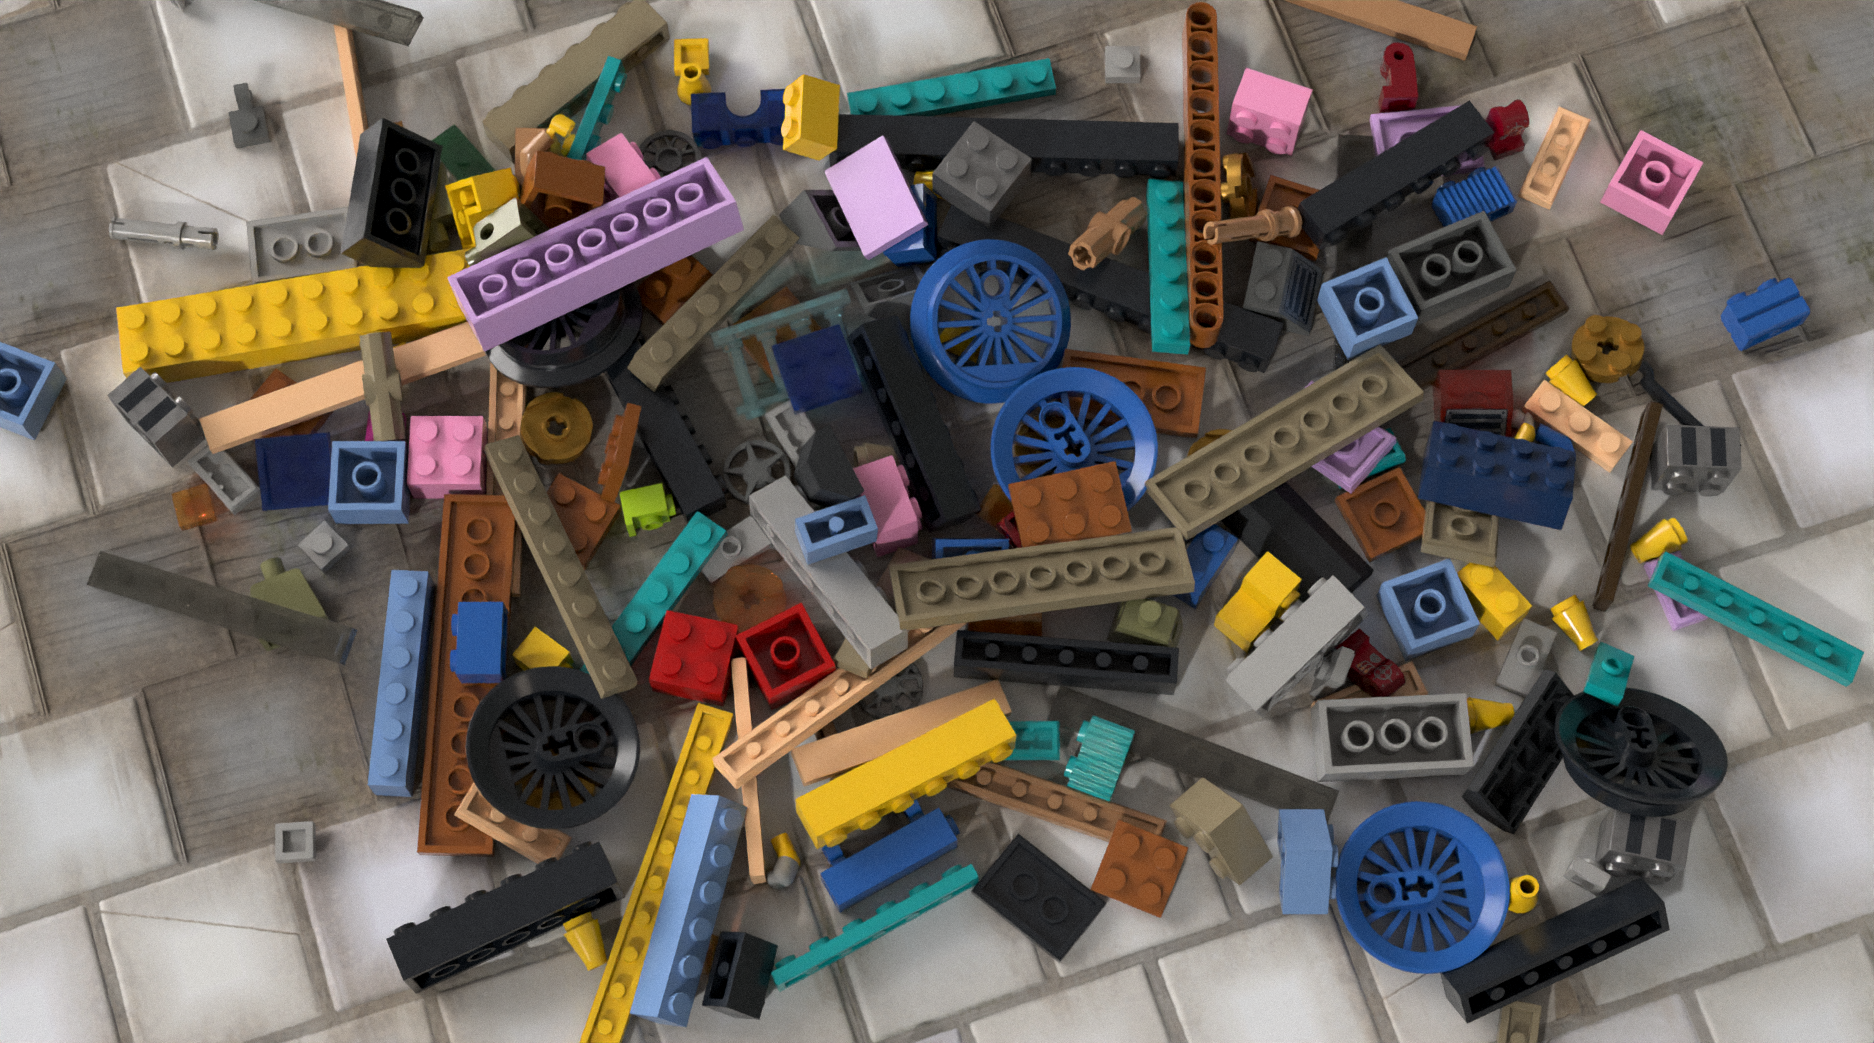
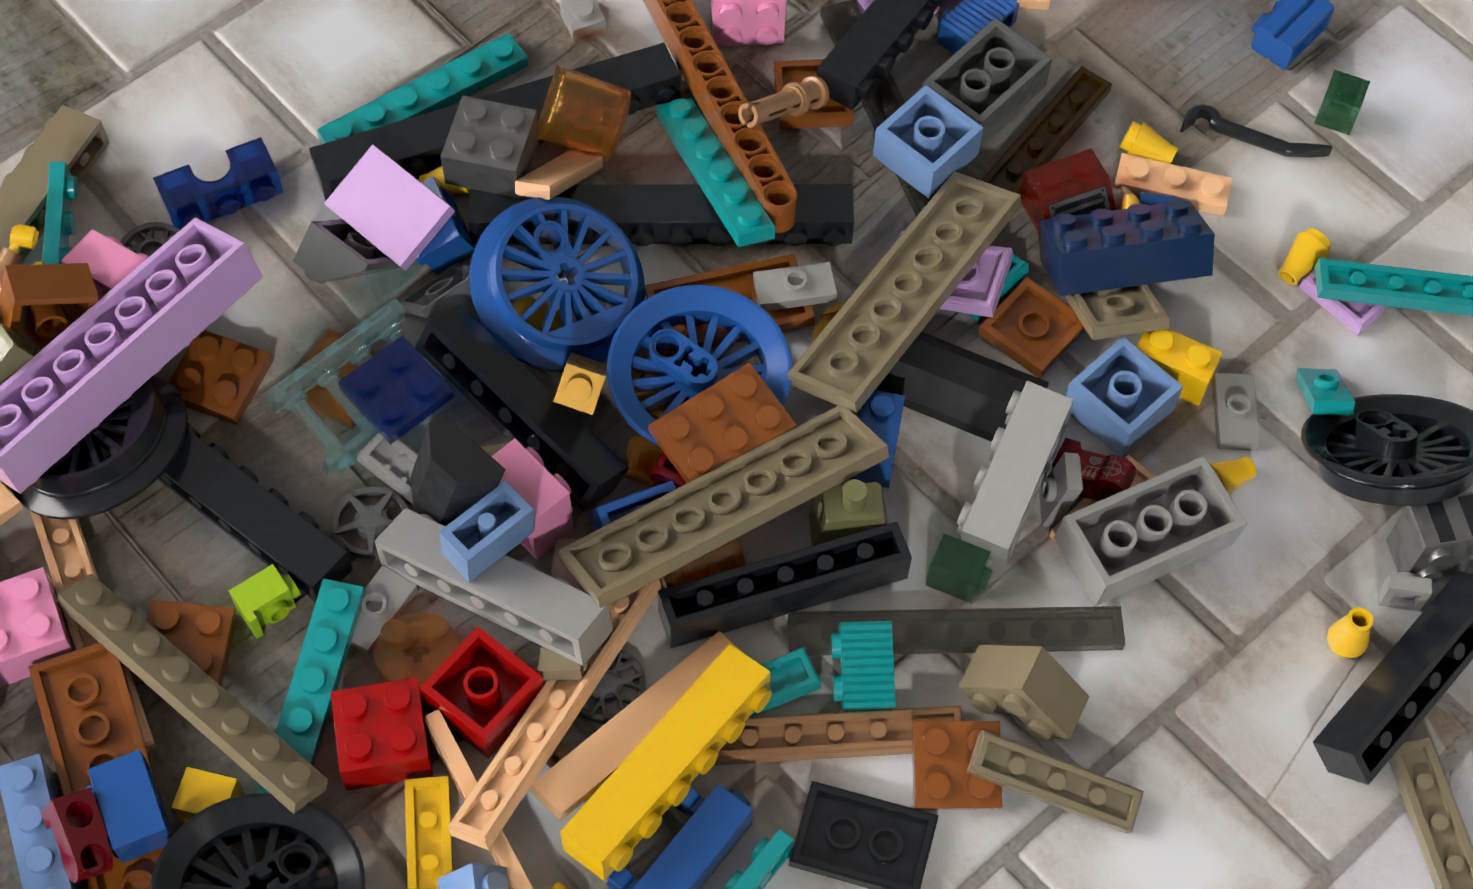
camera: 25 degrees left, 10 degrees down
(435, 652) = (79, 835): none -> dark red leg
(563, 410) = (135, 576): pearl gold plate -> none
(618, 451) = (212, 548): dark orange plate -> none
(691, 51) = (139, 148): yellow plate -> none
(692, 82) = (148, 165): yellow cone -> none
(713, 303) = (256, 367): dark tan brick -> none
(811, 117) = (290, 155): yellow brick -> none
(965, 427) = (581, 383): none -> brick
(1032, 219) = (558, 175): none -> light nougat tile
(1078, 167) = (584, 113): none -> clear orange brick
(1107, 233) = (640, 161): medium nougat piece -> none
(1191, 400) = (795, 286): none -> light grey plate
(1211, 915) = (1055, 782): none -> dark tan tile
(1218, 705) = (959, 569): none -> clear green brick
(1238, 187) = (749, 76): pearl gold plate -> none
(1262, 599) = (956, 444): yellow brick -> none
(1283, 287) = (832, 153): dark grey slope -> none
(1306, 861) = (1128, 687): medium blue brick -> none
(1481, 875) = (1305, 637): blue piece -> none
(1521, 758) = (1283, 500): black piece -> none
(1574, 621) = (1265, 358): yellow cone -> none
(1608, 331) = (1179, 91): pearl gold plate -> none
(1627, 506) = (1259, 238): dark brown tile -> none
(1695, 459) = (1301, 167): flat silver brick -> none
(1770, 407) = (1342, 102): none -> clear green brick

